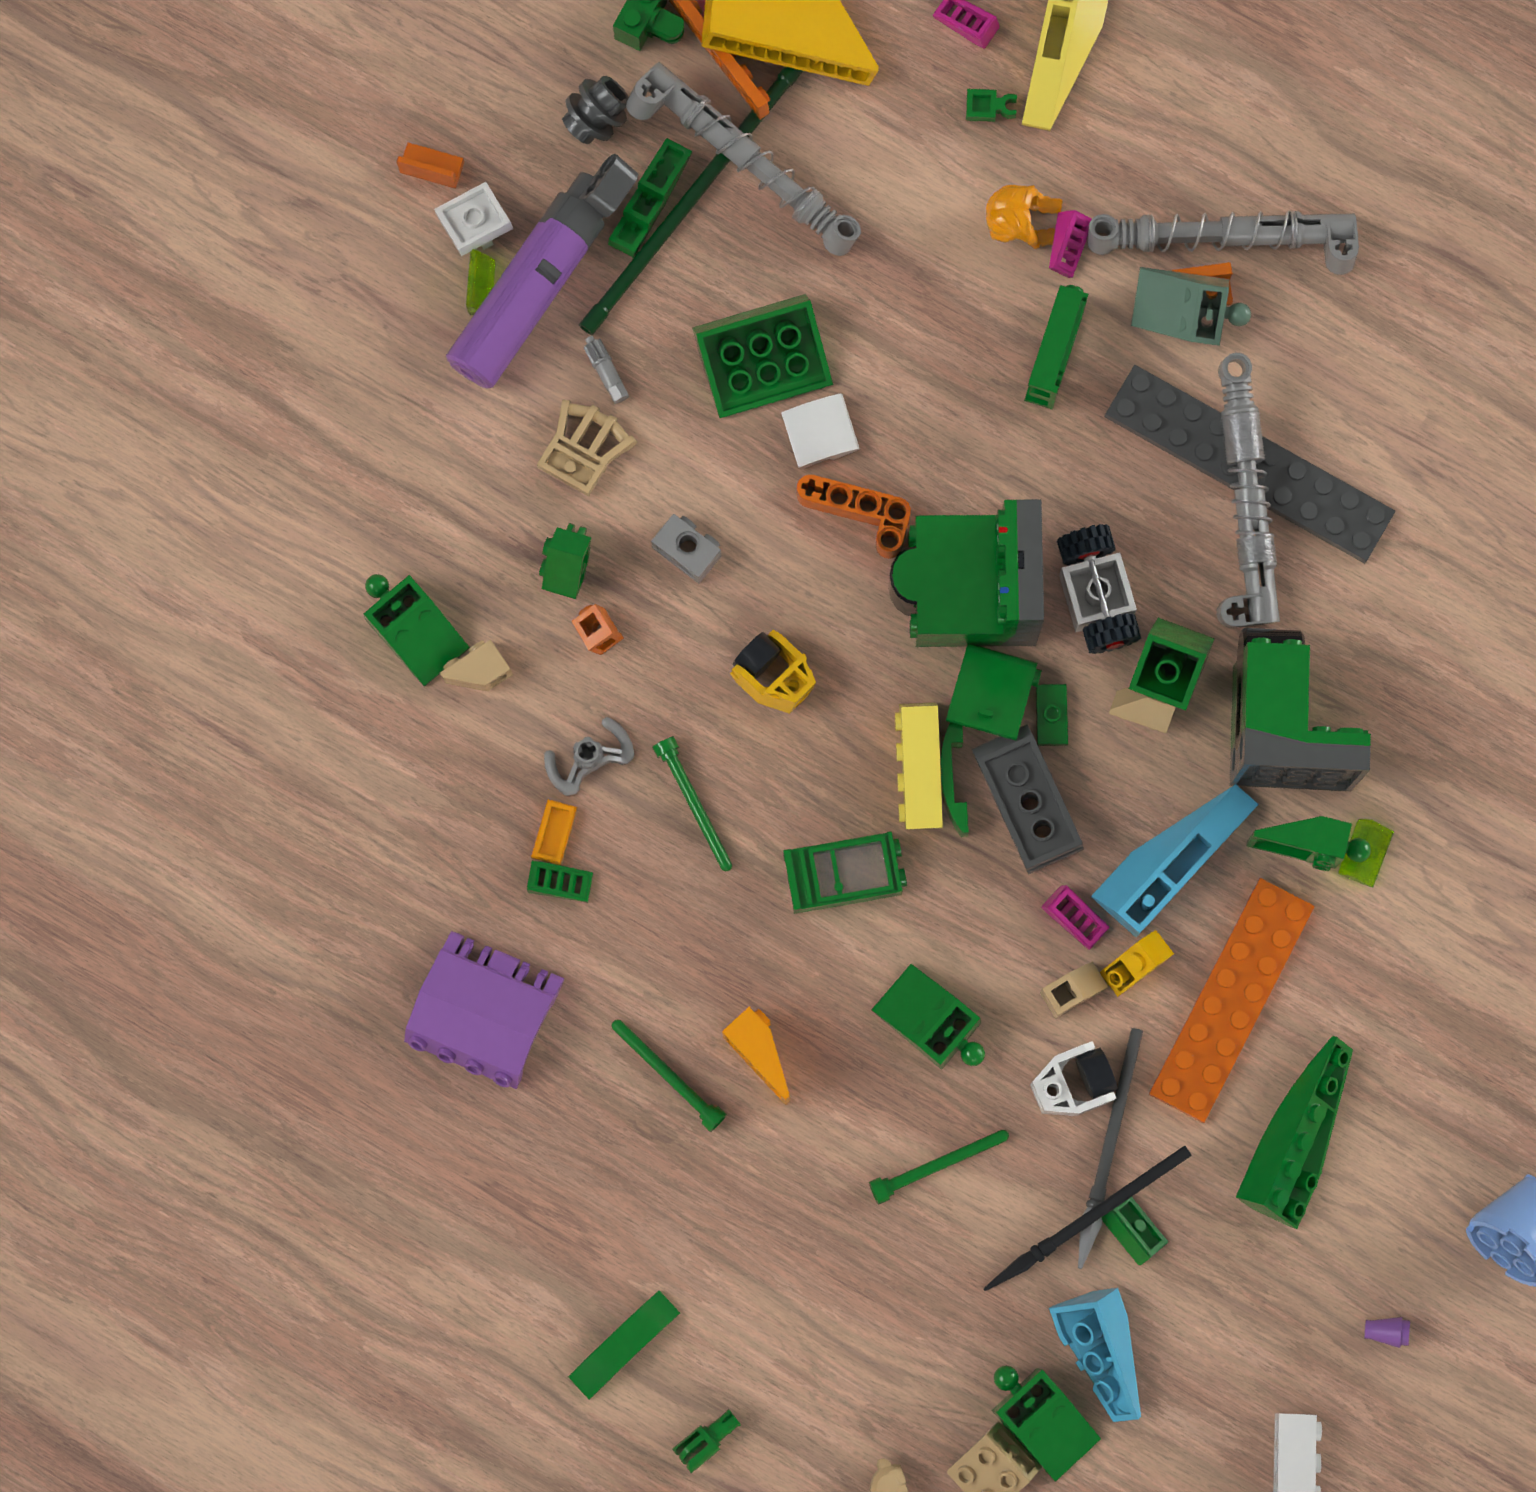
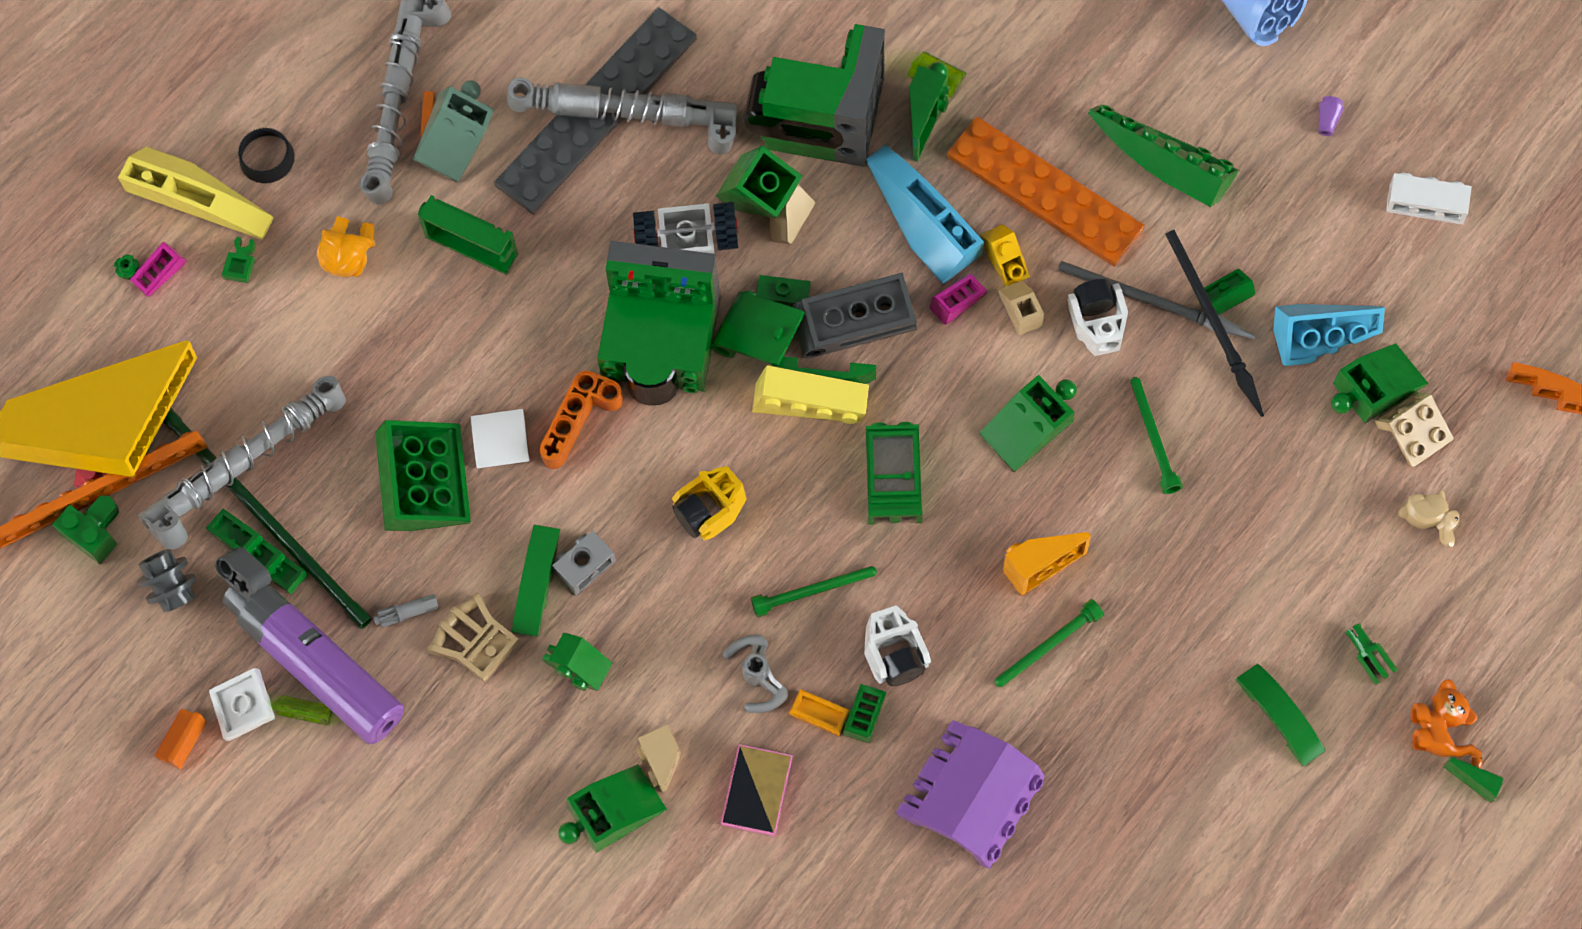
camera: 80 degrees left, 10 degrees down
(457, 778) = (756, 790): none -> tile
(587, 623) = (653, 645): orange brick -> none
(616, 914) = (900, 666): none -> white piece
(658, 499) = (535, 580): none -> green slope
(1070, 232) = (375, 215): dark pink slope -> none
(1121, 131) = (273, 174): none -> black tyre

